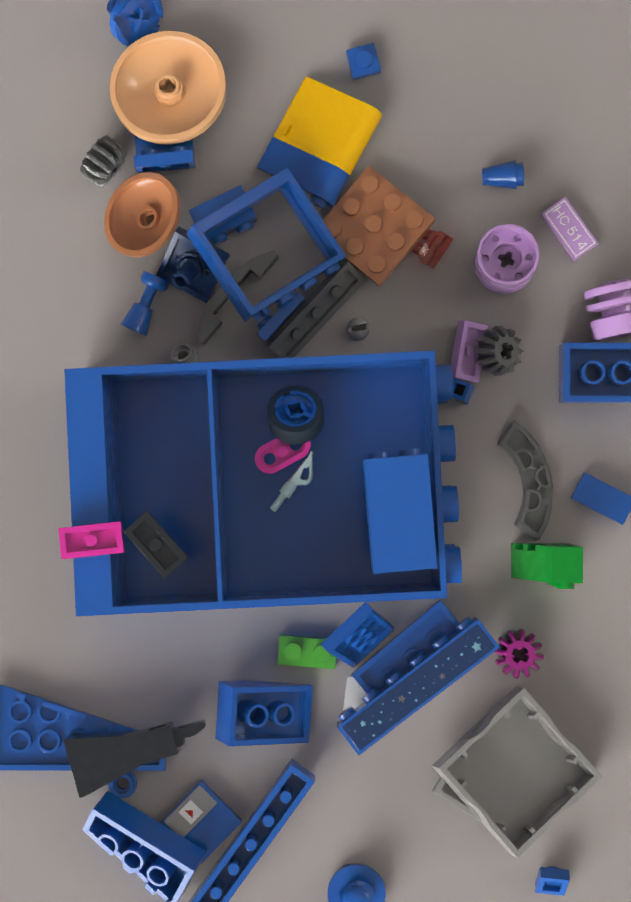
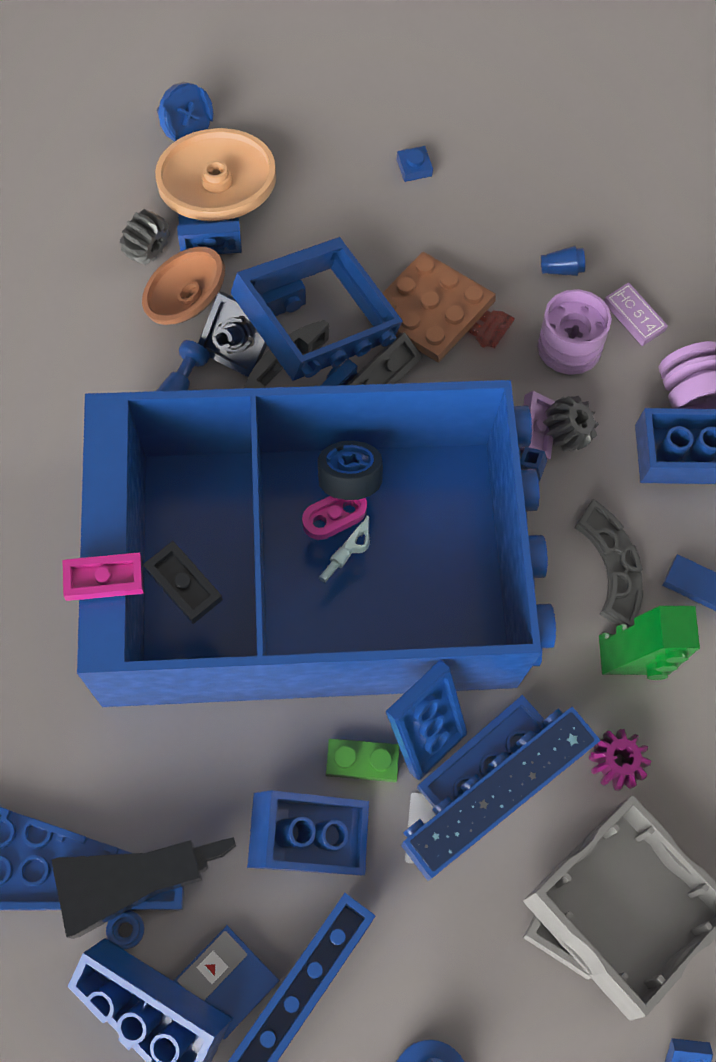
camera: 10 degrees left, 20 degrees down
(321, 140) = (378, 224): yellow door -> none
(399, 512) = (481, 544): blue brick -> none

